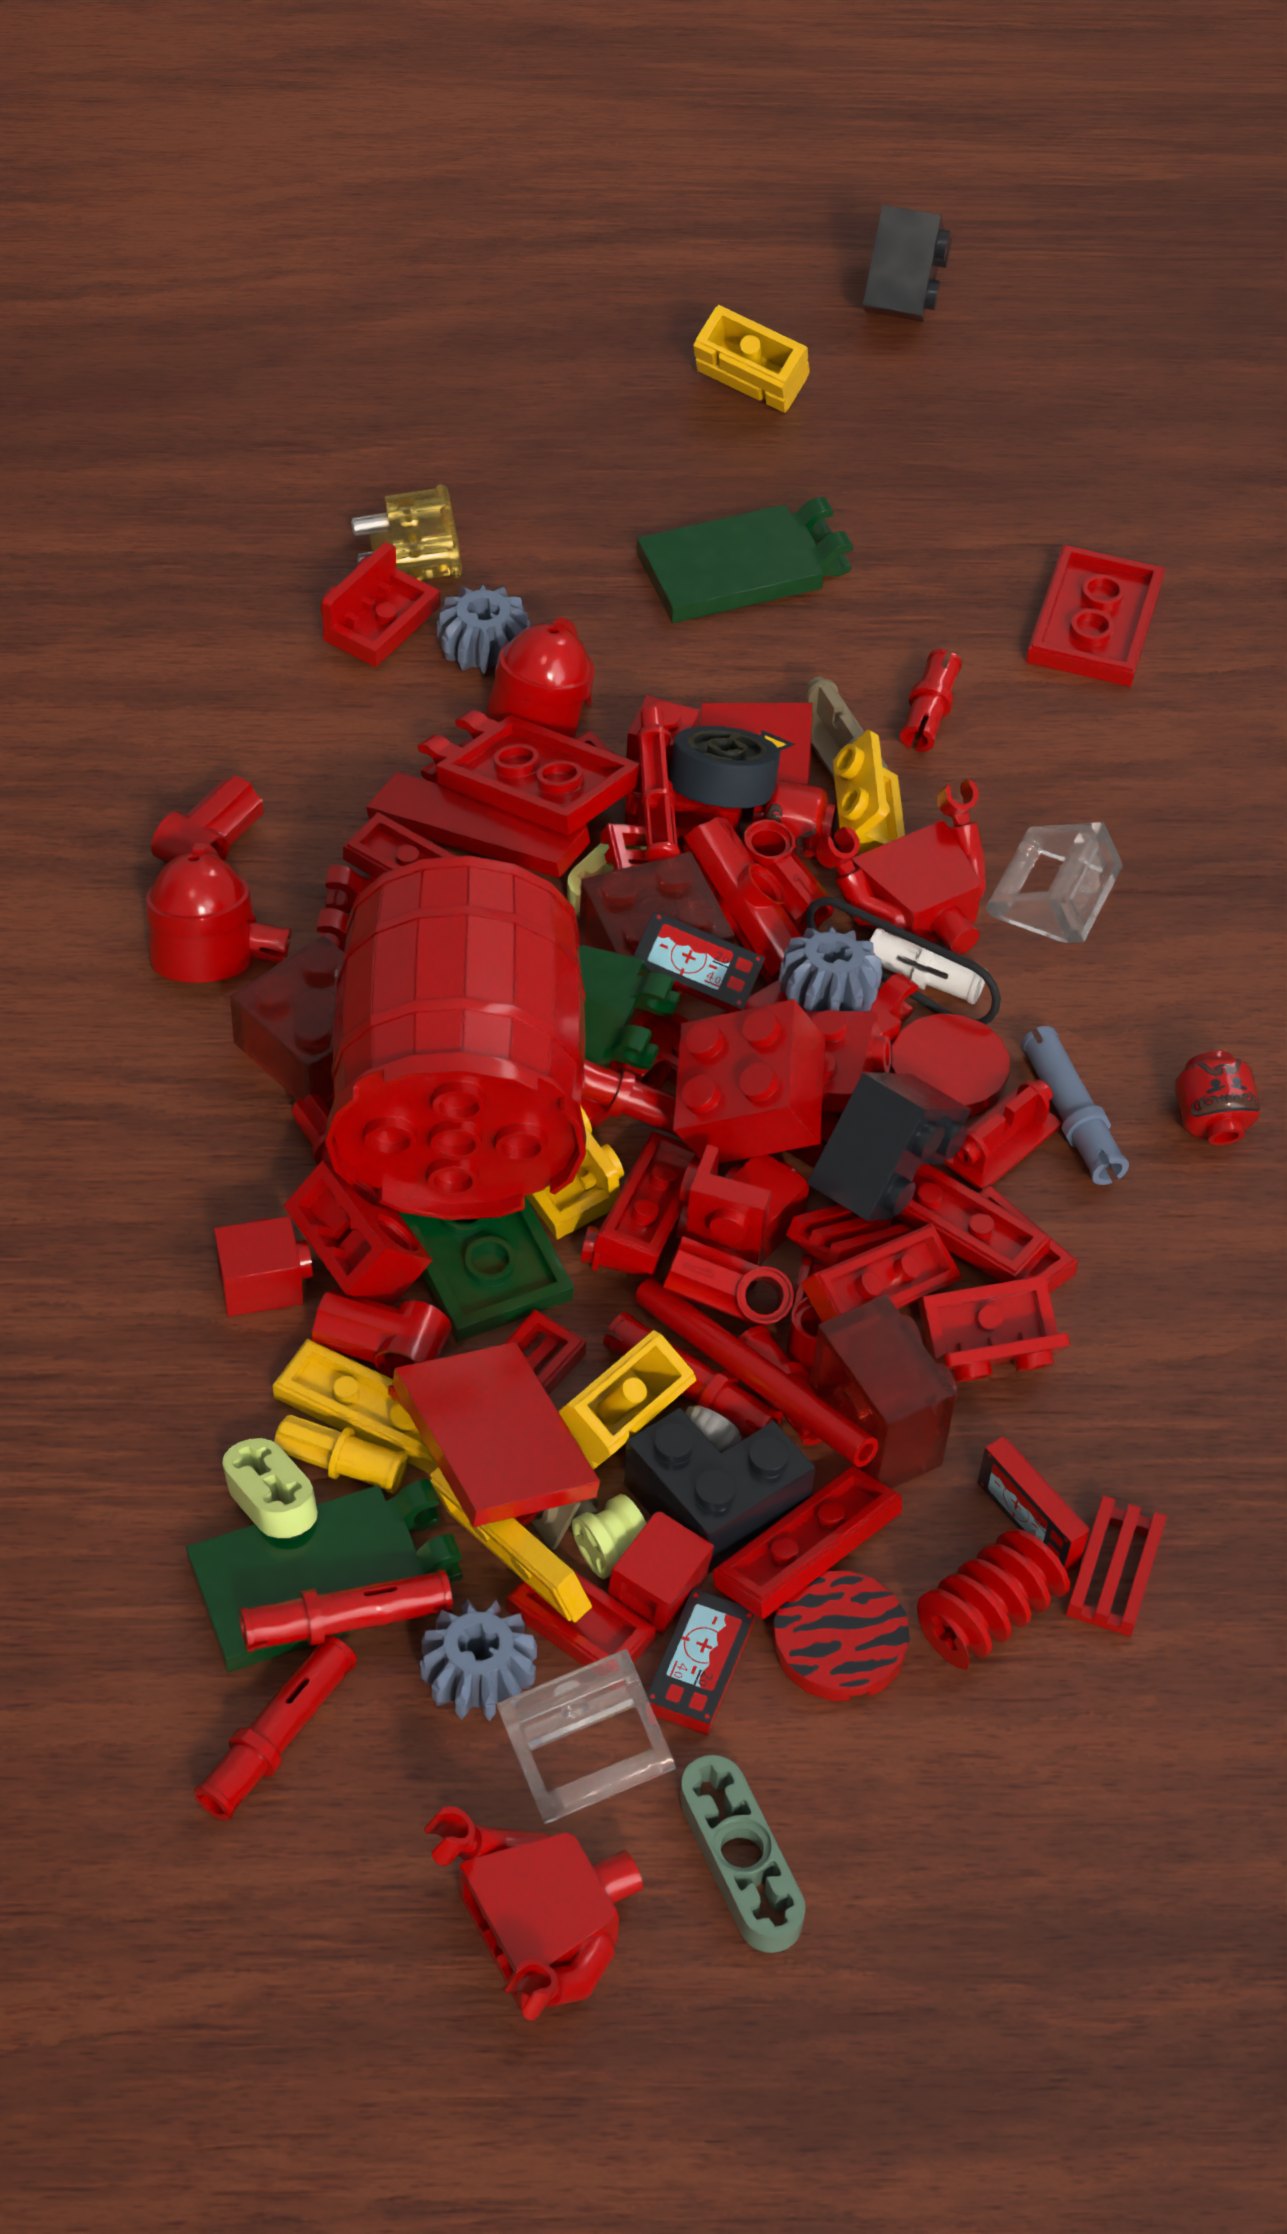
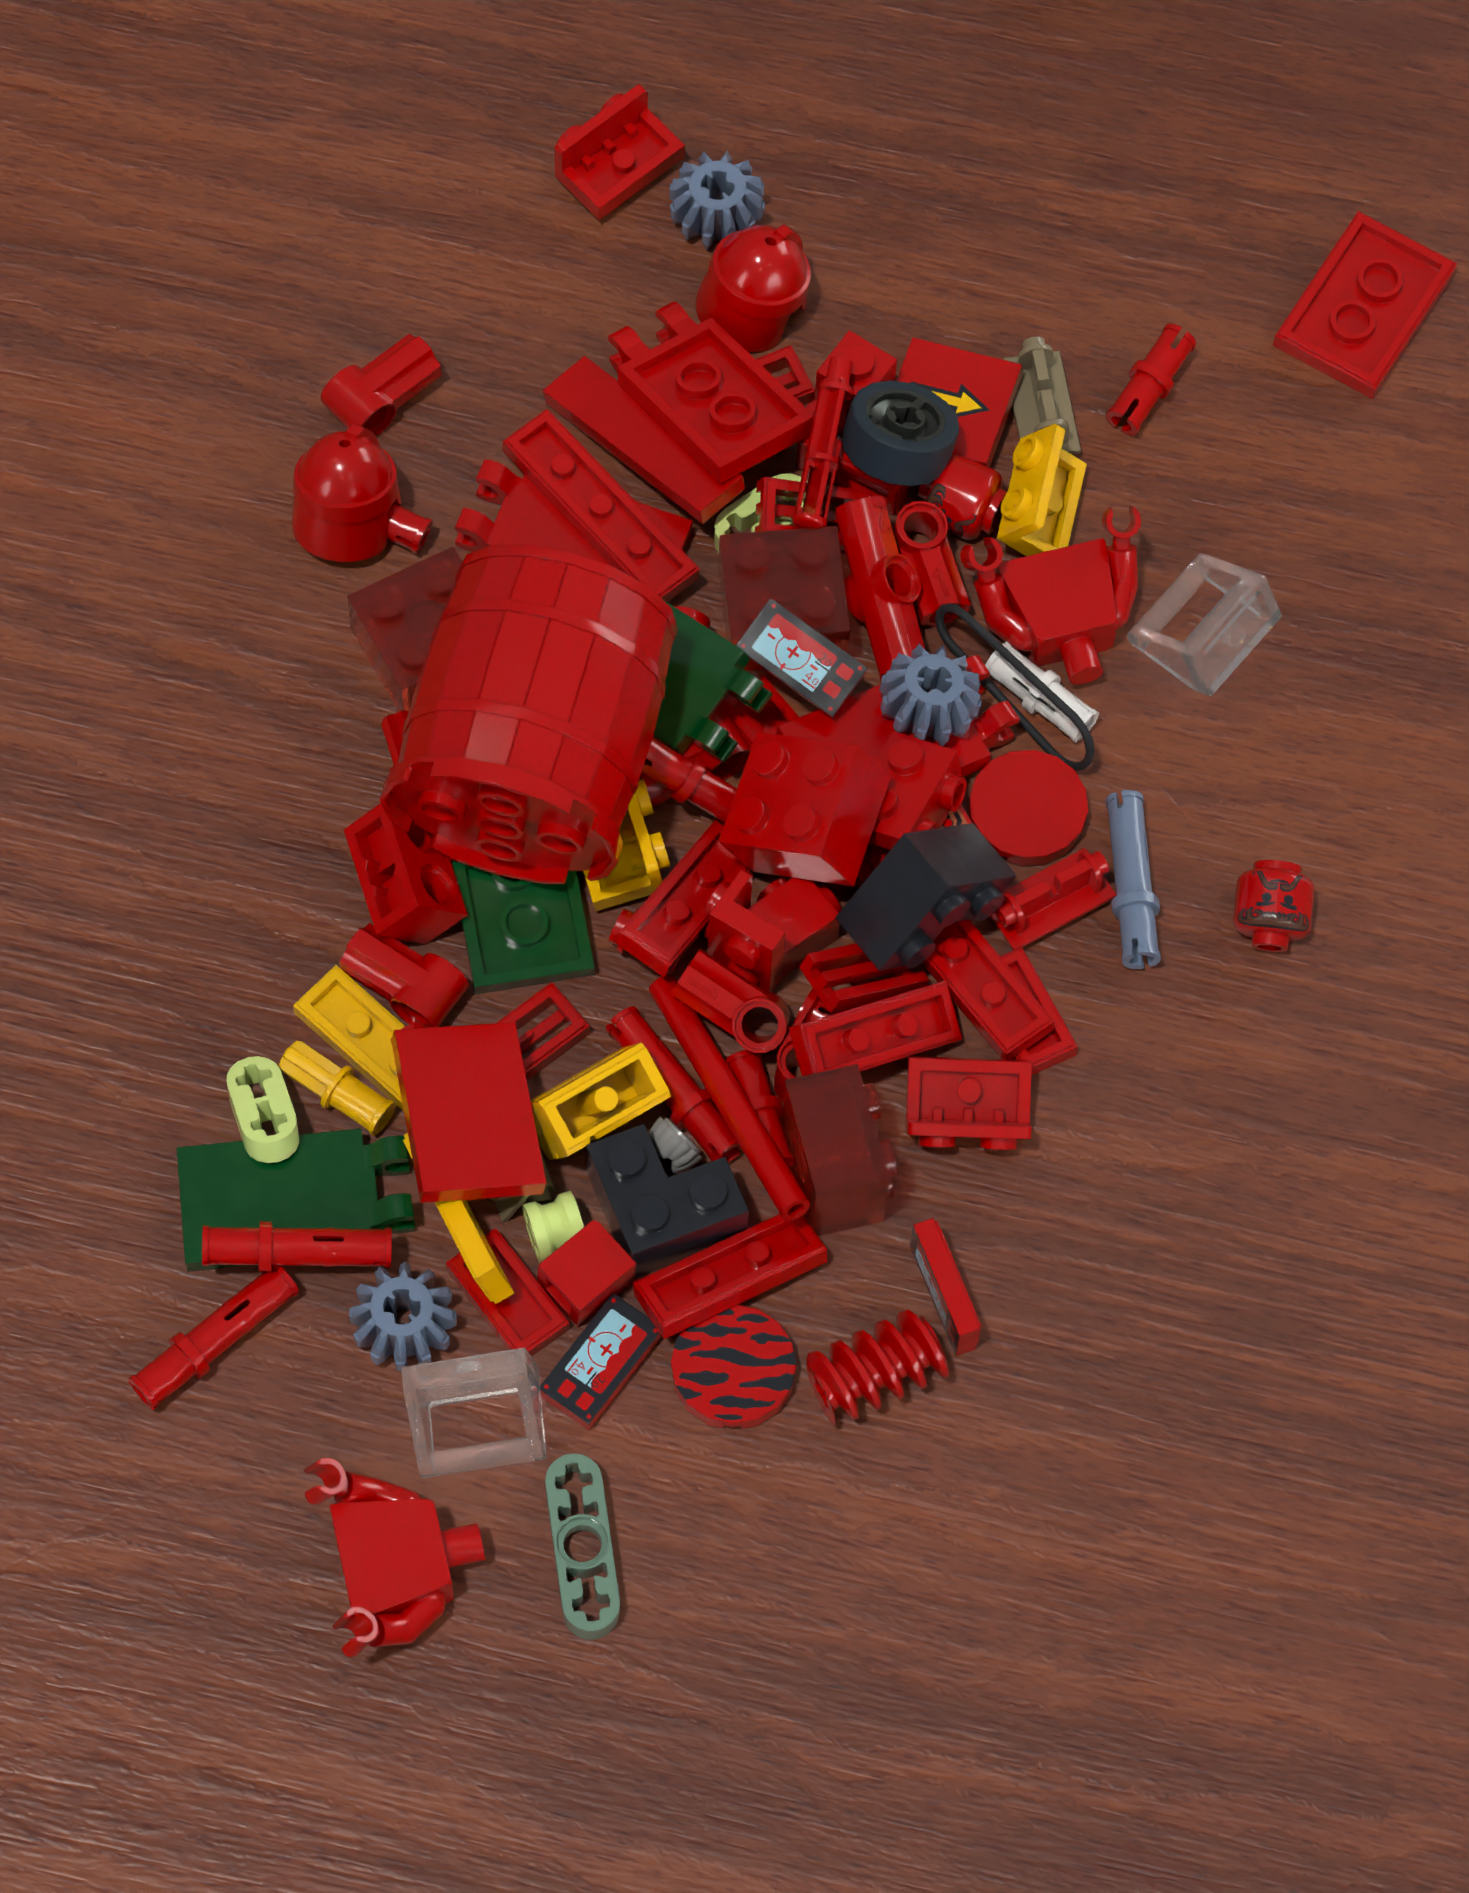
camera: 15 degrees right, 15 degrees up
(261, 1265) = (311, 881): red brick -> none
(421, 530) = (685, 65): clear yellow piece -> none
(743, 559) = (1014, 161): dark green tile -> none
(1129, 1522) = (1033, 1318): red tile -> none

